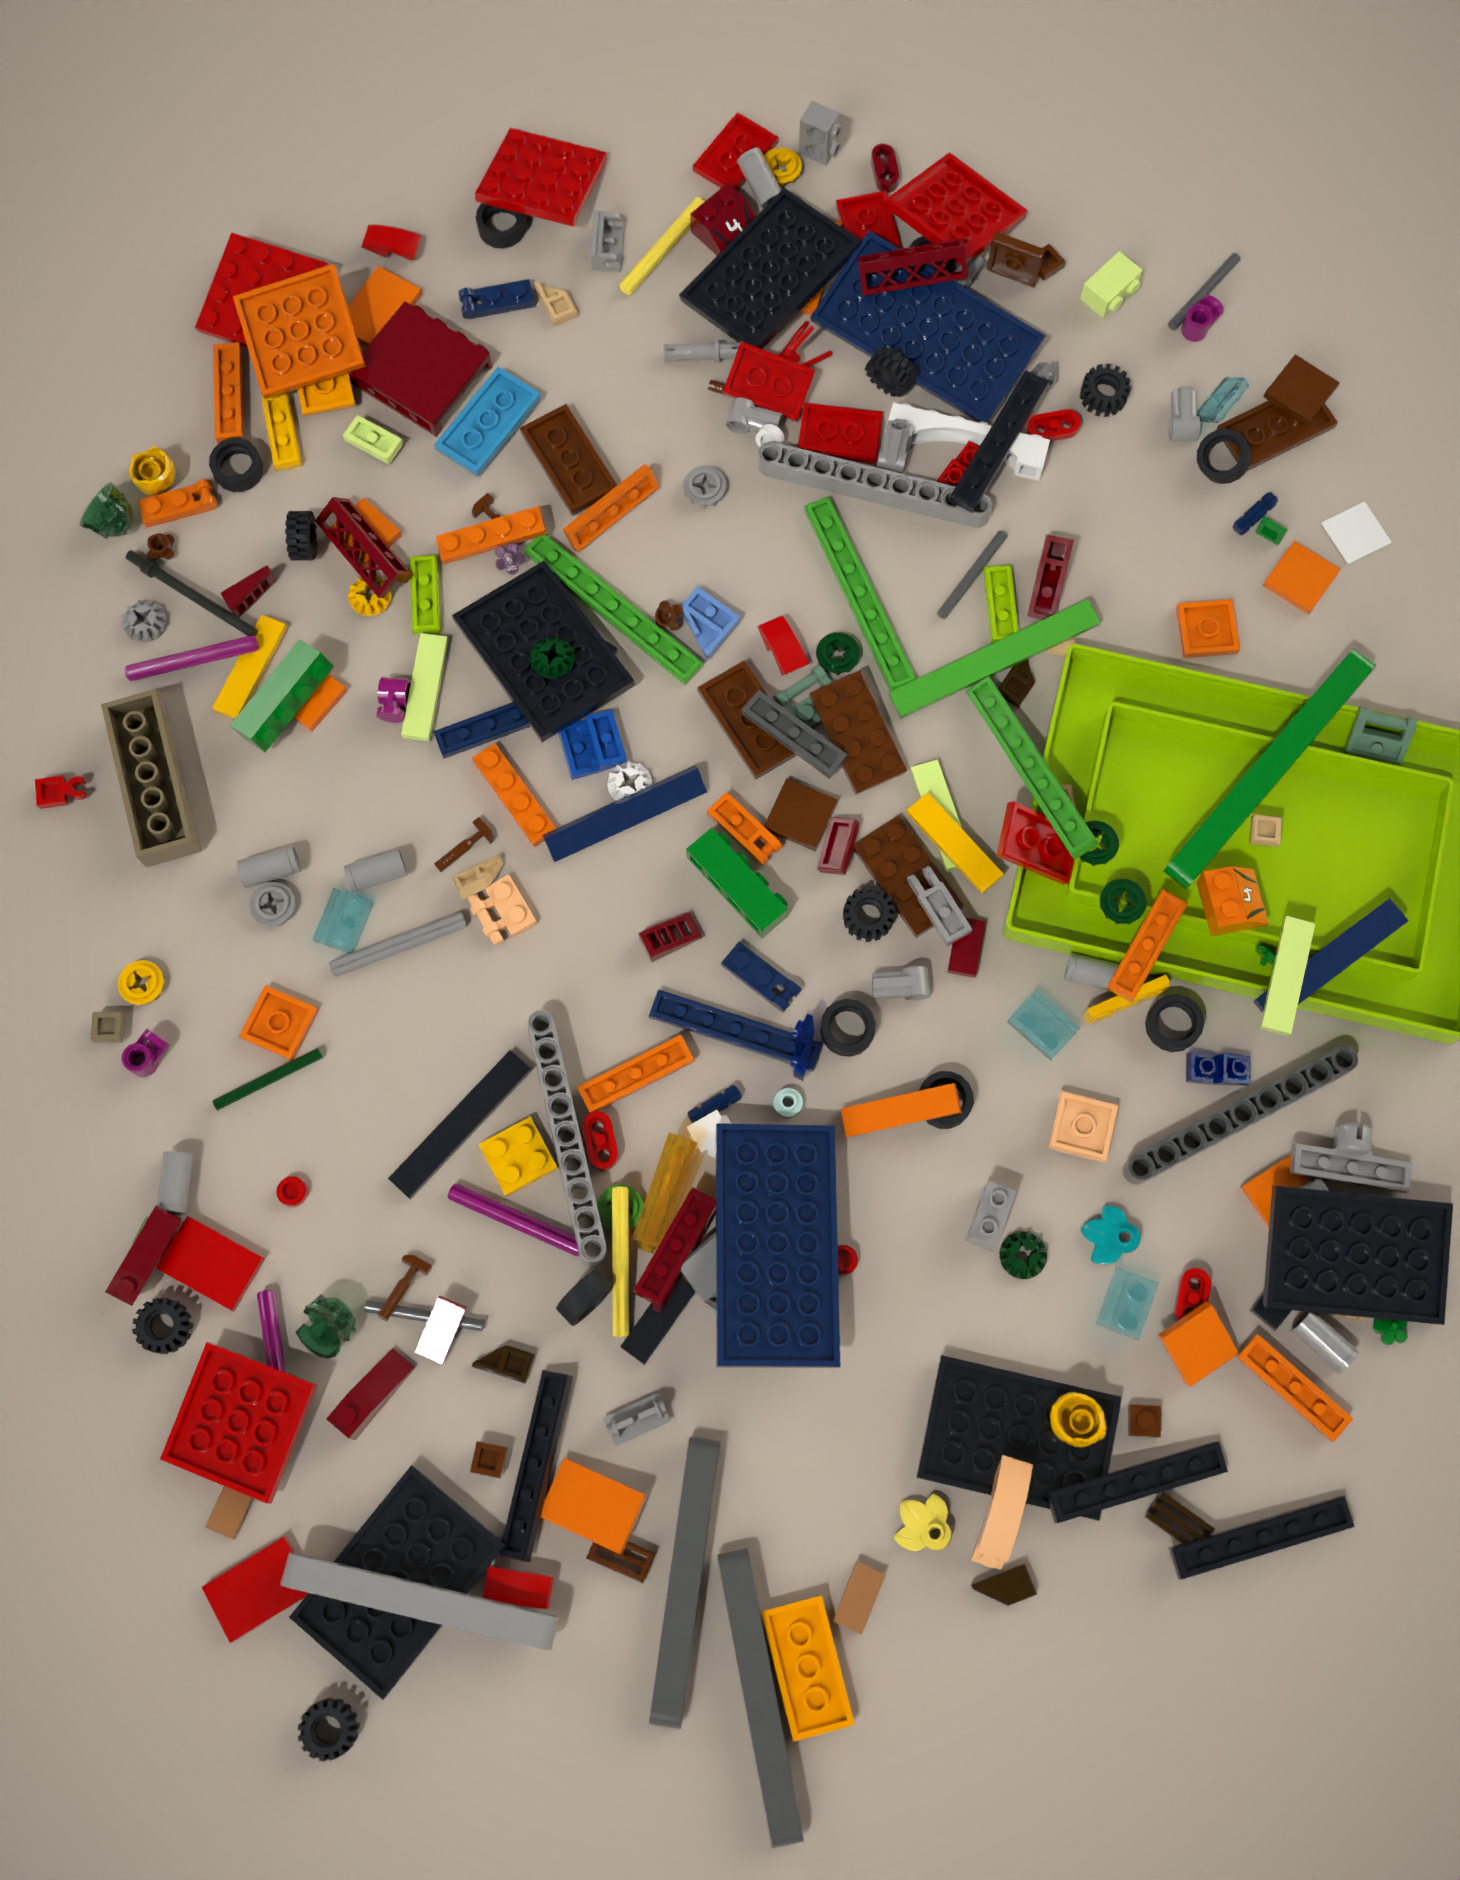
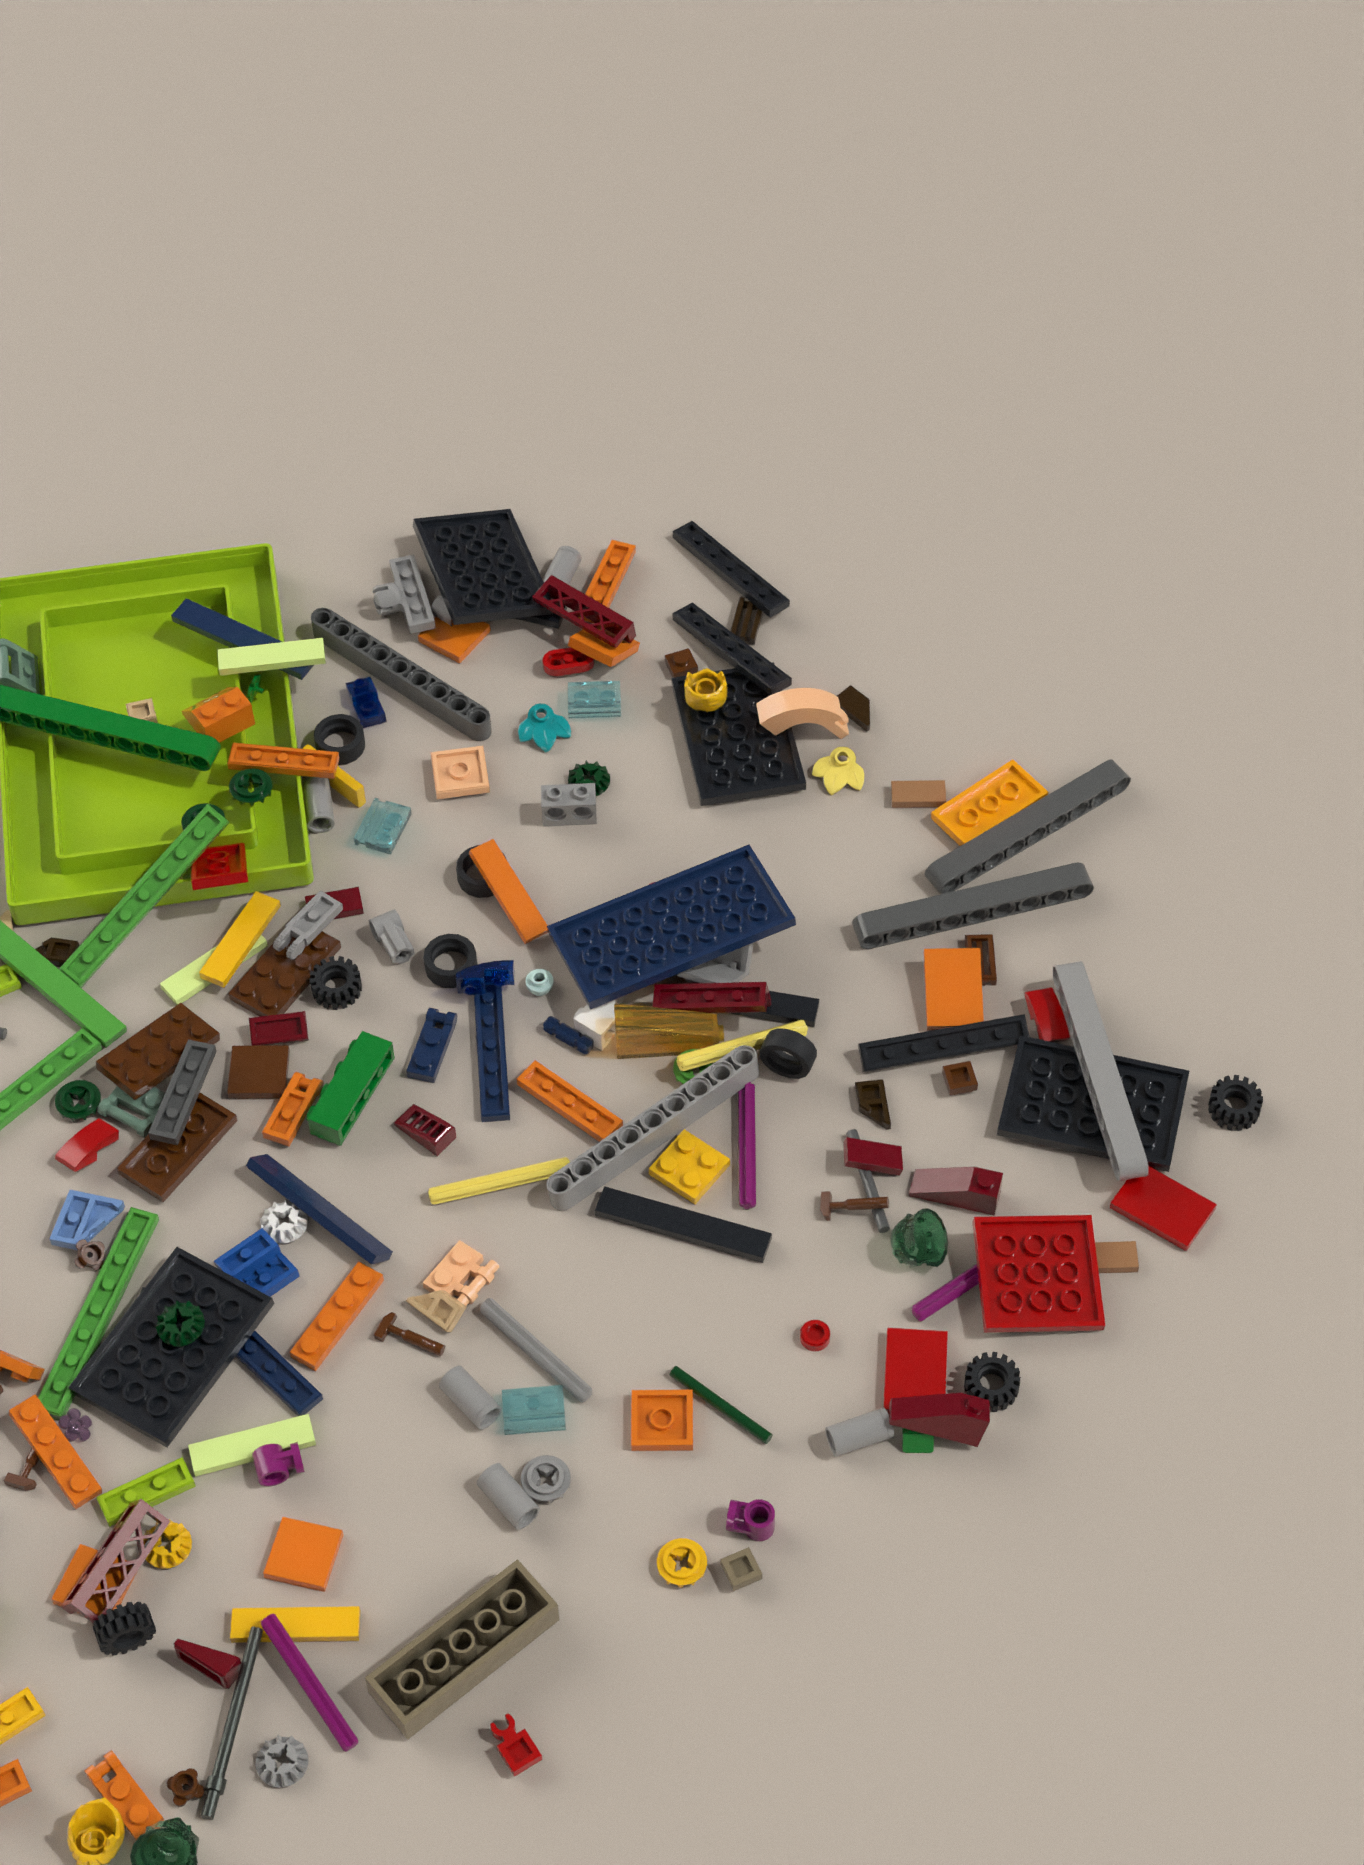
camera: 115 degrees left, 20 degrees down
(231, 447) = (47, 1728): black tyre -> none
(282, 695) = (320, 1558): brick -> none
(583, 981) = (495, 1181): none -> light yellow axle
(600, 1141) = (641, 1101): red plate -> none
(636, 1419) = (865, 988): light grey hinge -> none
(1246, 1344) = (586, 607): none -> dark red fence
(1392, 1330) = (532, 539): green plant -> none

